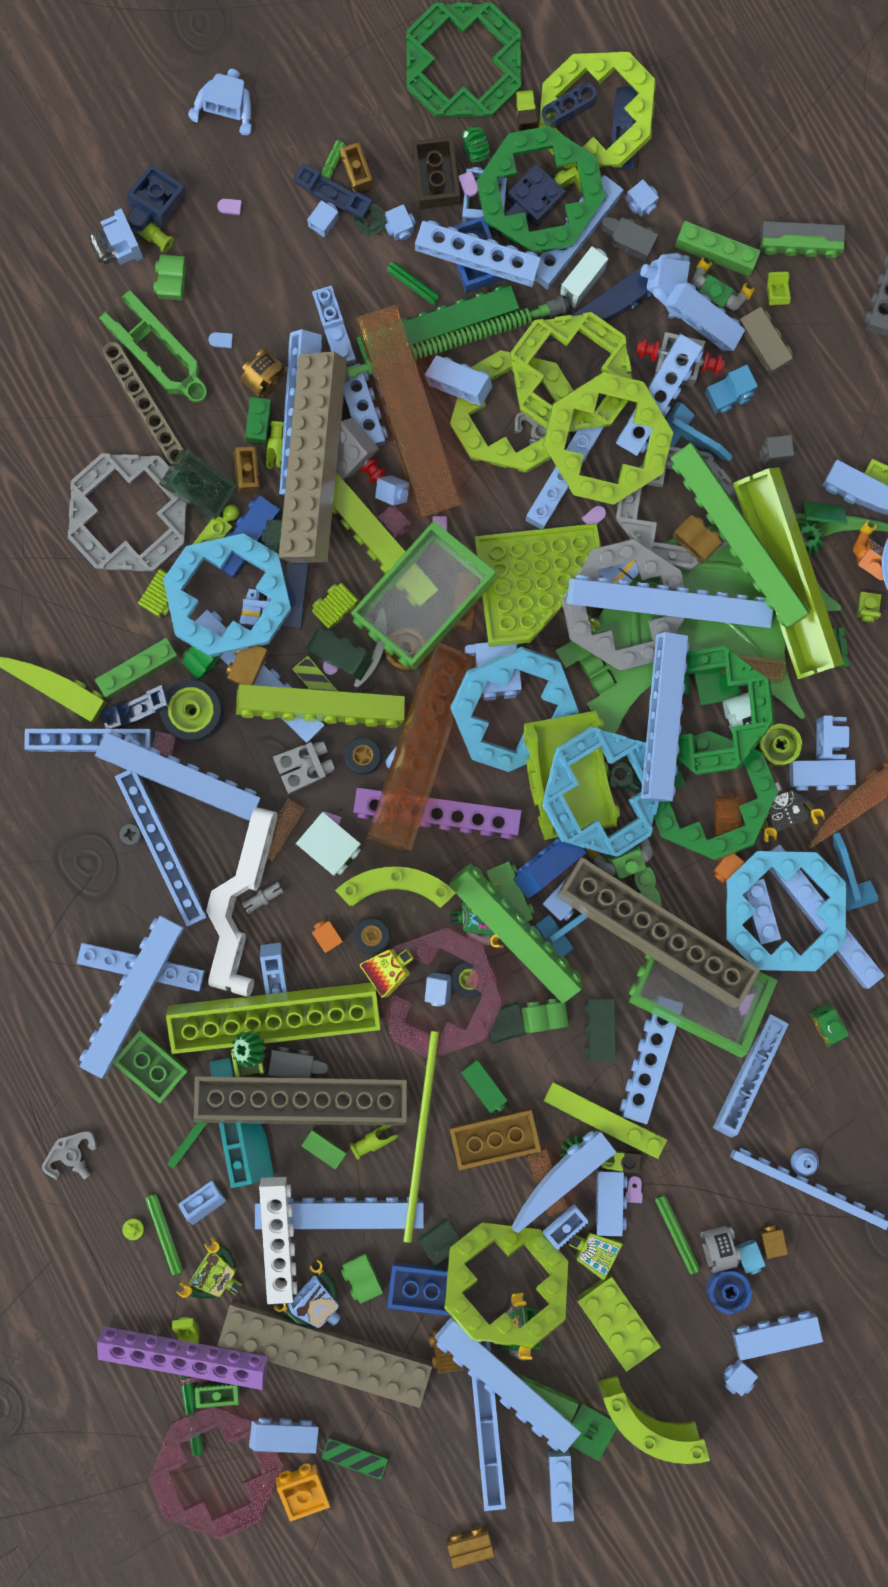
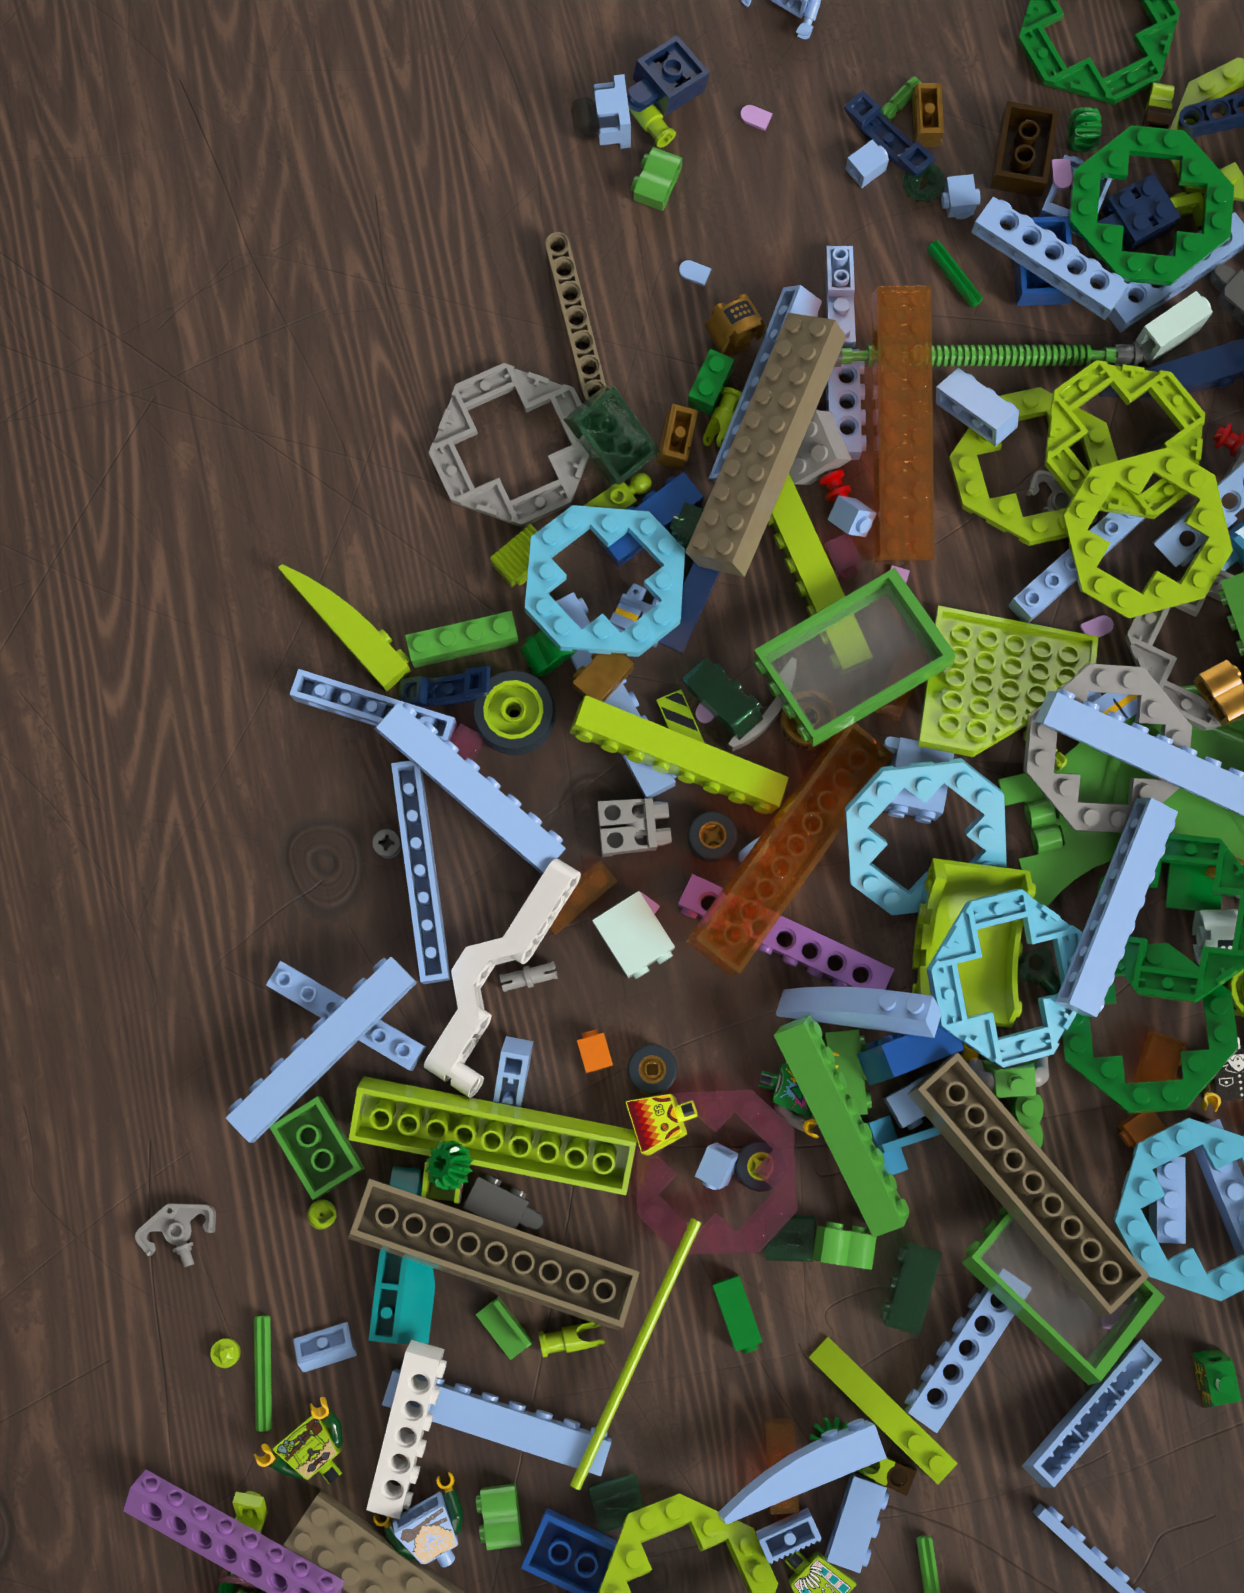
camera: 25 degrees right, 5 degrees down
(169, 1111) = (321, 1214): none -> lime tile
(187, 1143) = (329, 1264): green tile -> none
(190, 386) = (641, 316): bright green piece -> none
(334, 606) = (735, 637): lime brick -> none
(395, 878) = (709, 1006): lime panel -> none
(461, 315) = (998, 328): green brick -> none
(495, 1139) = (731, 1387): pearl gold brick -> none
(506, 846) = (863, 1008): none -> light blue slope
(634, 1194) = (891, 1521): lavender piece -> none
(810, 1158) = (1130, 1552): light blue cone -> none

